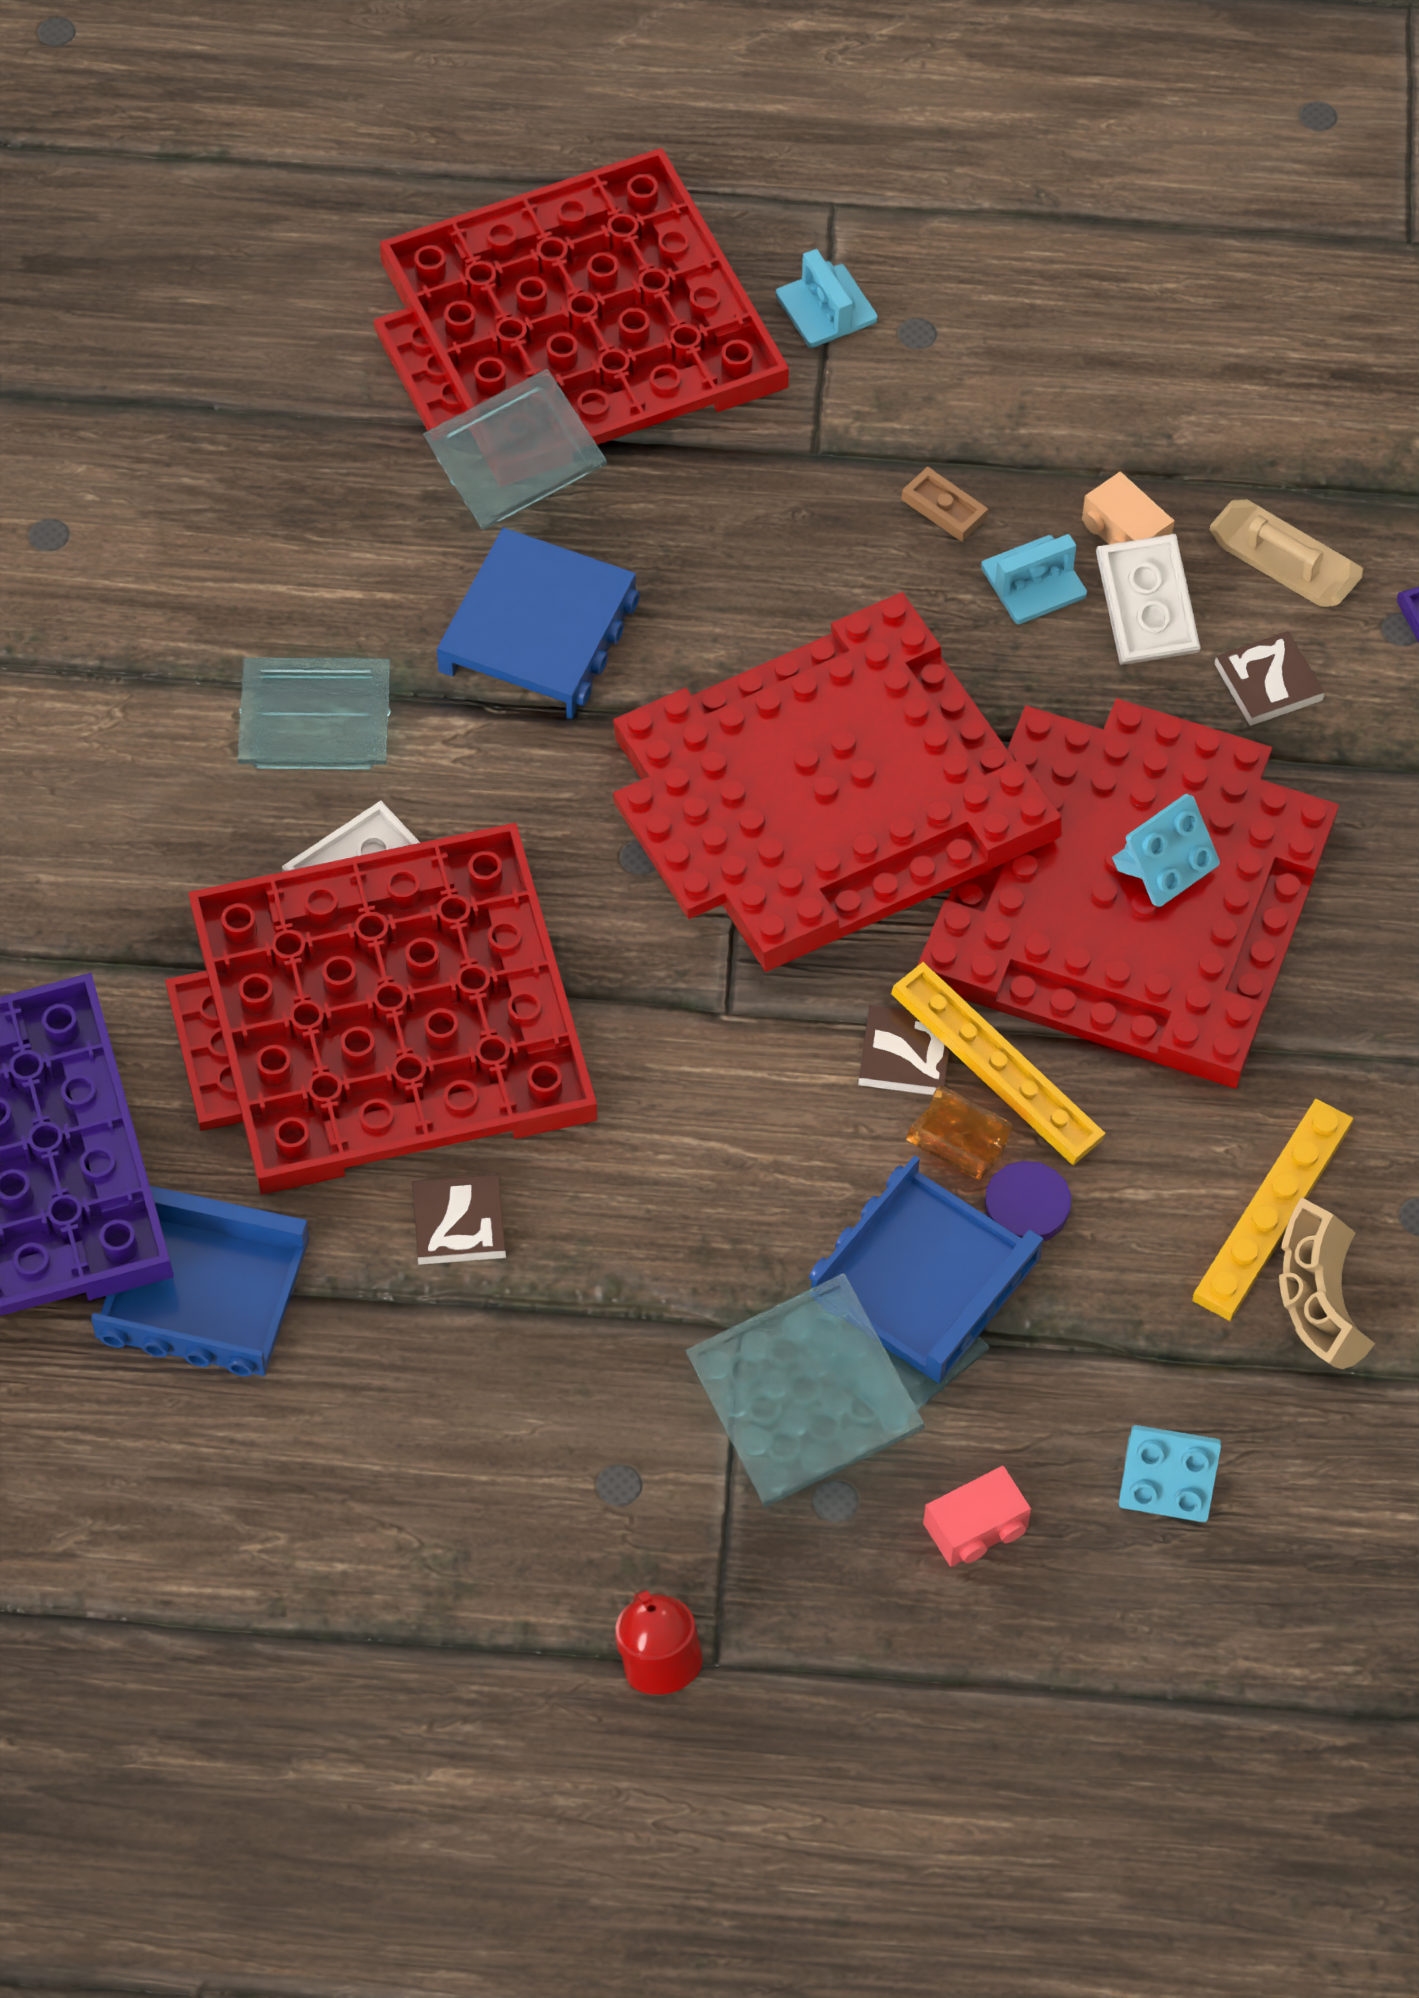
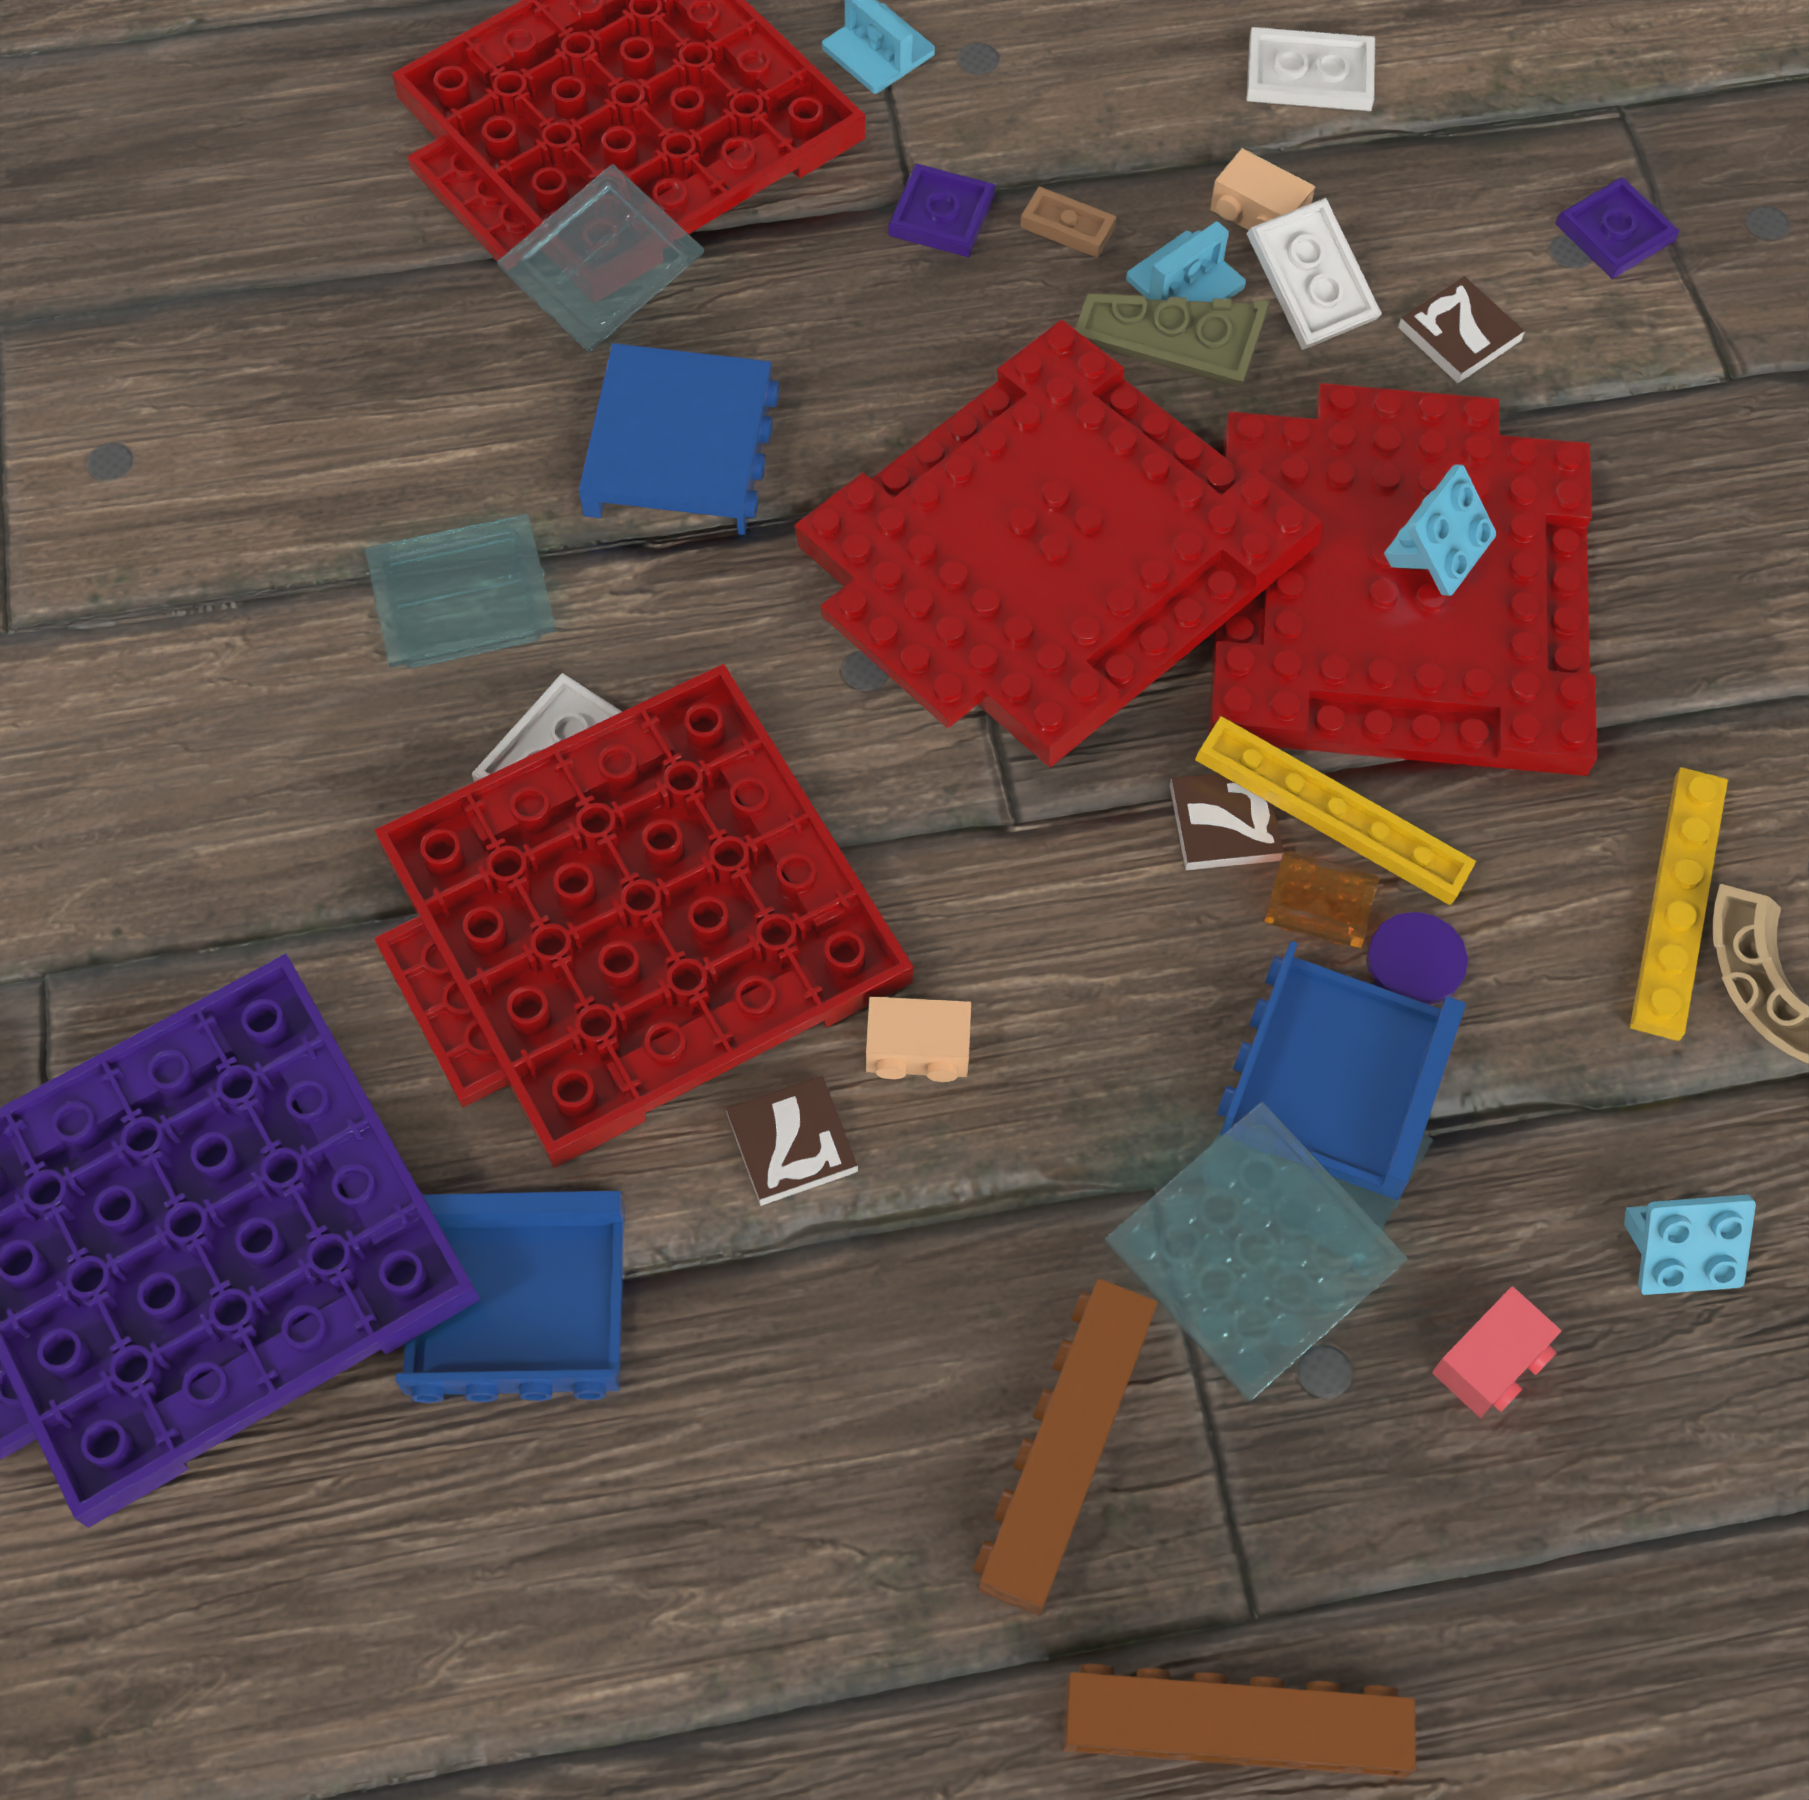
camera: 15 degrees left, 5 degrees up
(585, 1163) = (918, 1038): none -> light nougat brick
(604, 1499) = (1067, 1446): none -> dark orange brick
(658, 1644) = (1191, 1628): red helmet -> none
(671, 1729) = (1239, 1722): none -> dark orange brick
(836, 468) = (941, 210): none -> dark purple tile
(1017, 630) = (1185, 335): none -> olive wing
(1217, 409) = (1311, 69): none -> white plate
(1285, 553) = (1431, 200): tan piece -> none

